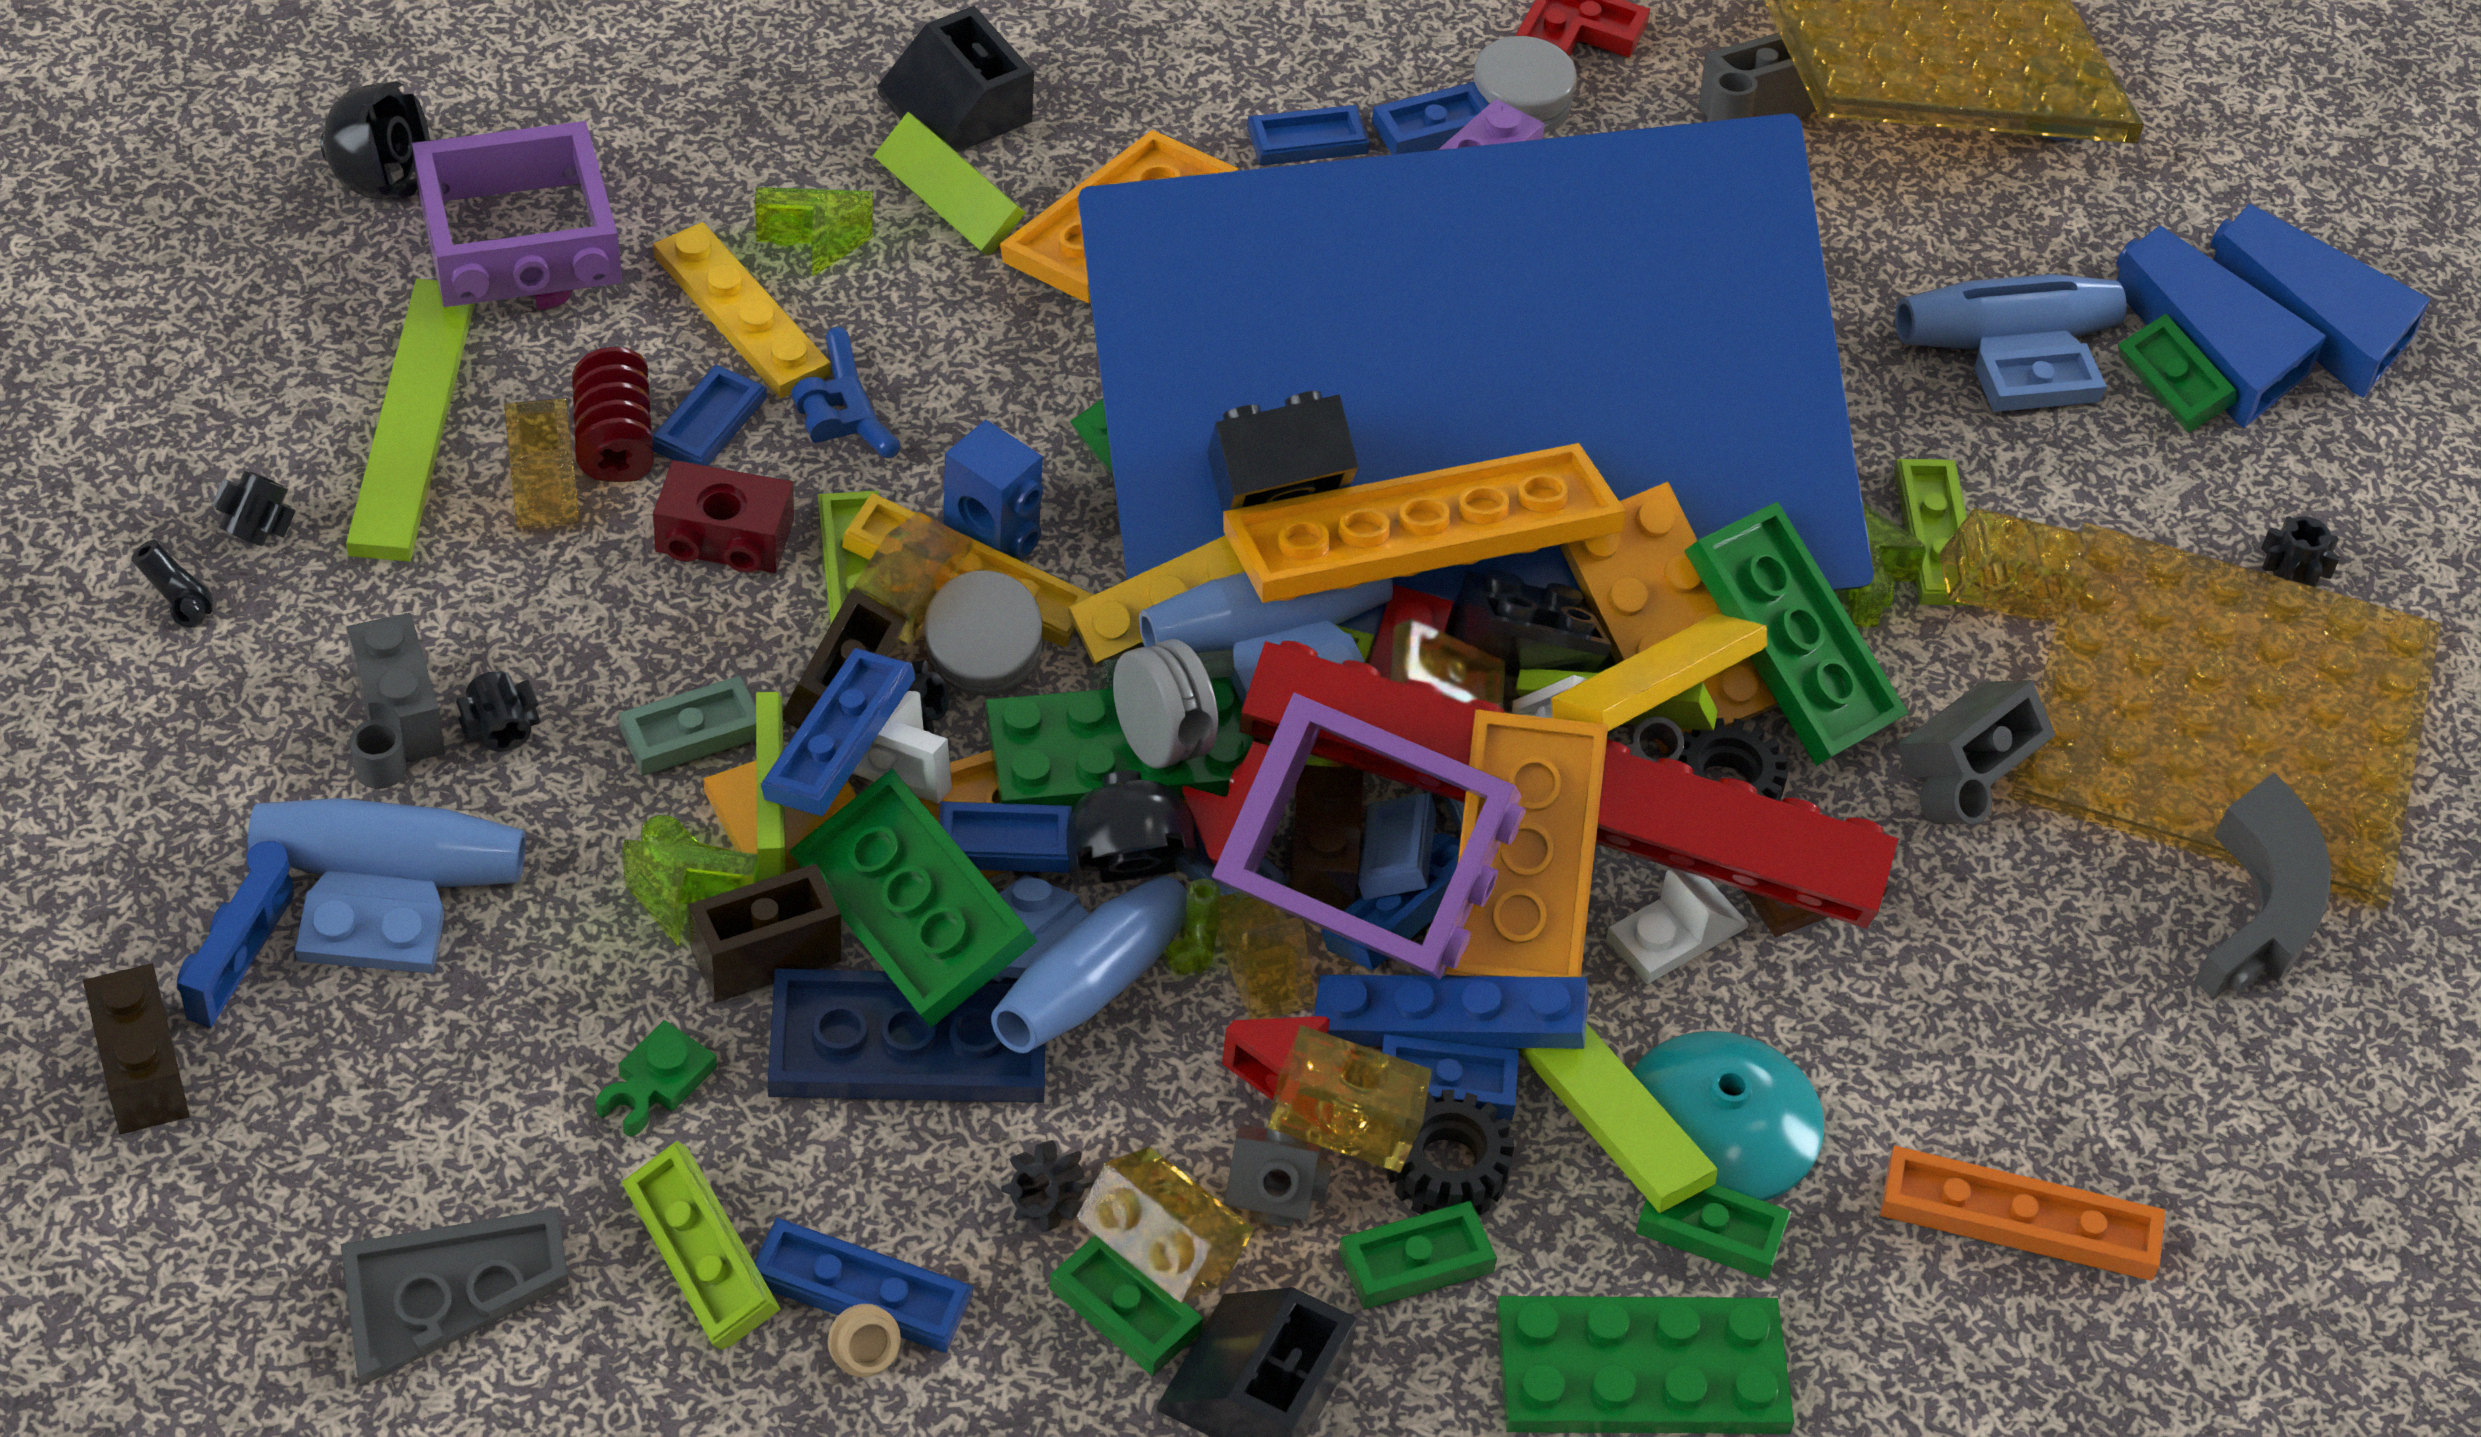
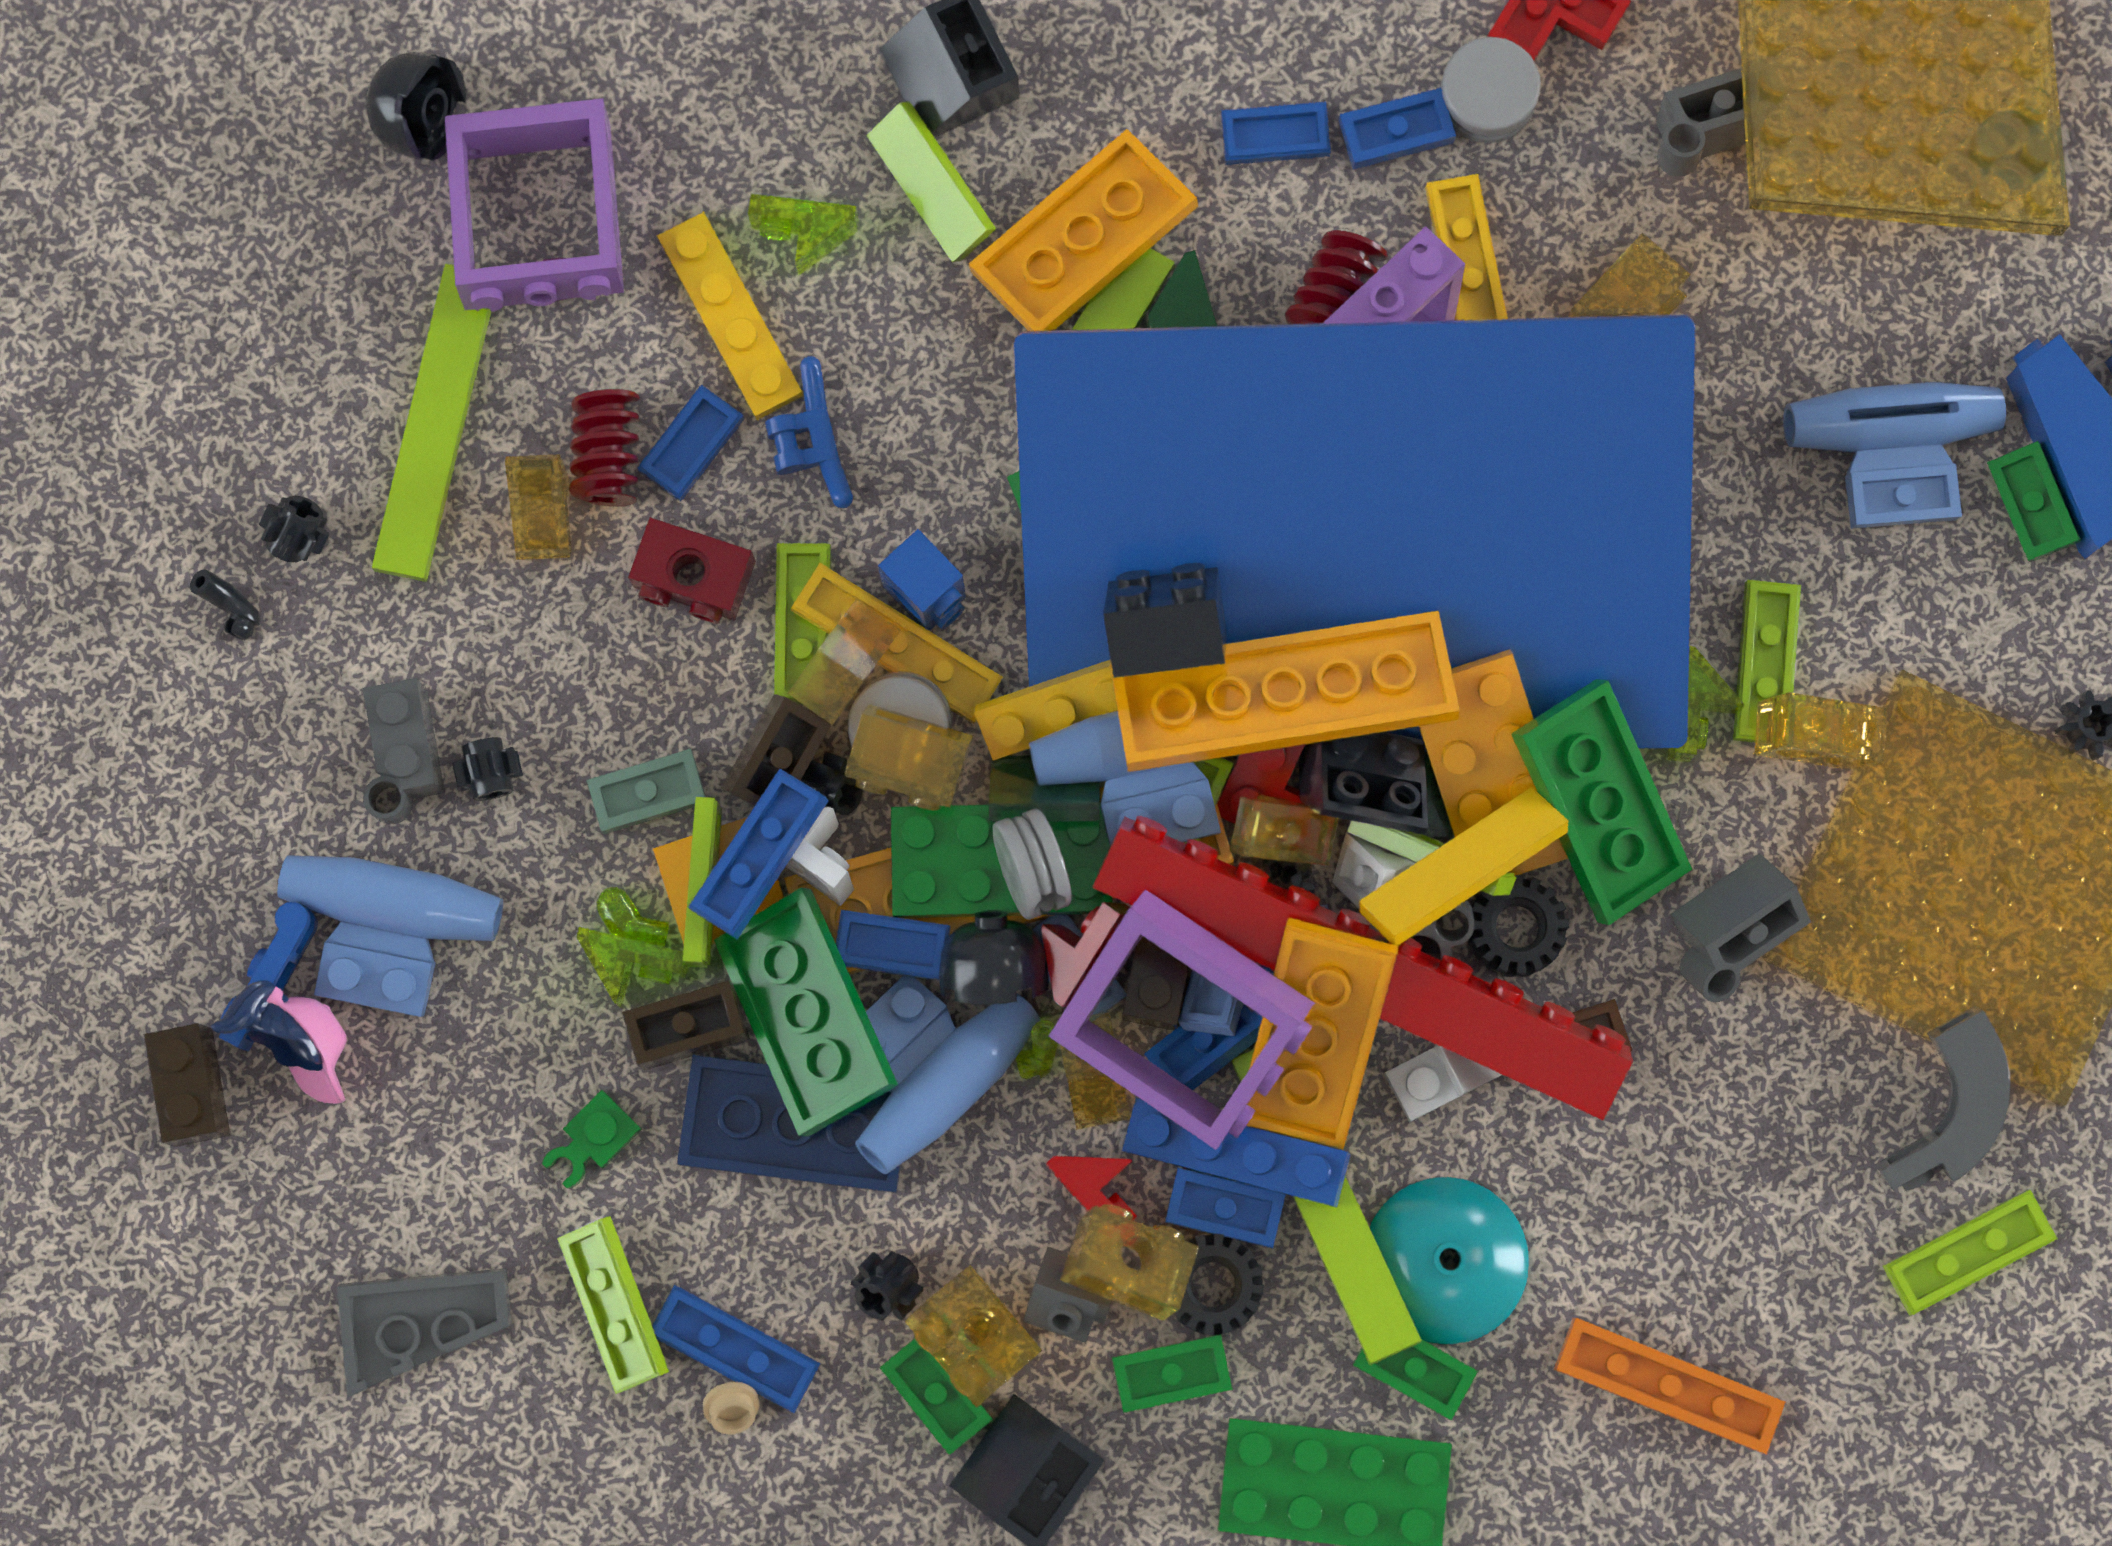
camera: 15 degrees right, 30 degrees up
(276, 982) = (297, 1032): none -> hair
(1001, 637) = (908, 757): none -> clear yellow brick
(2328, 1054) = (1969, 1252): none -> lime tile

